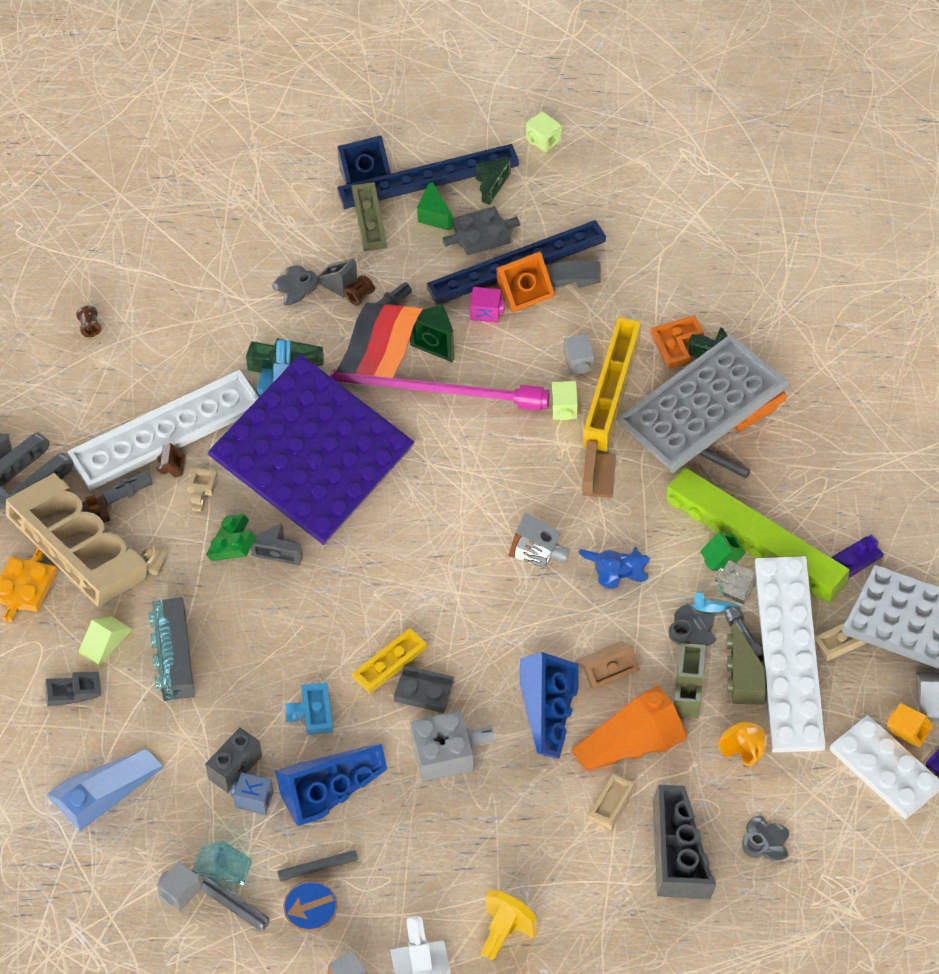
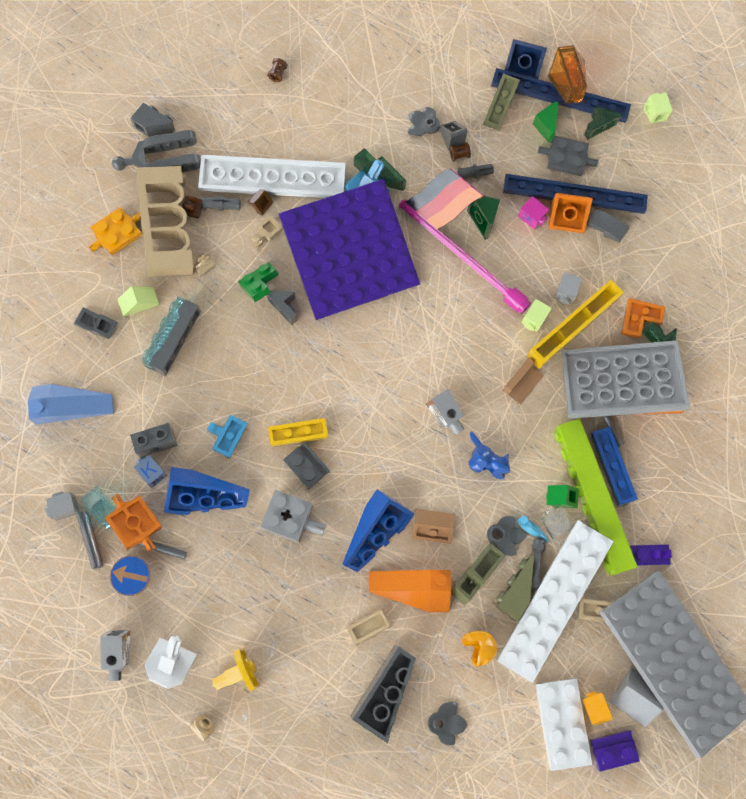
camera: 25 degrees right, 20 degrees up
(273, 852) = (133, 522): none -> orange plate
(424, 149) = (569, 74): none -> clear orange slope
(755, 495) = (614, 466): none -> blue plate

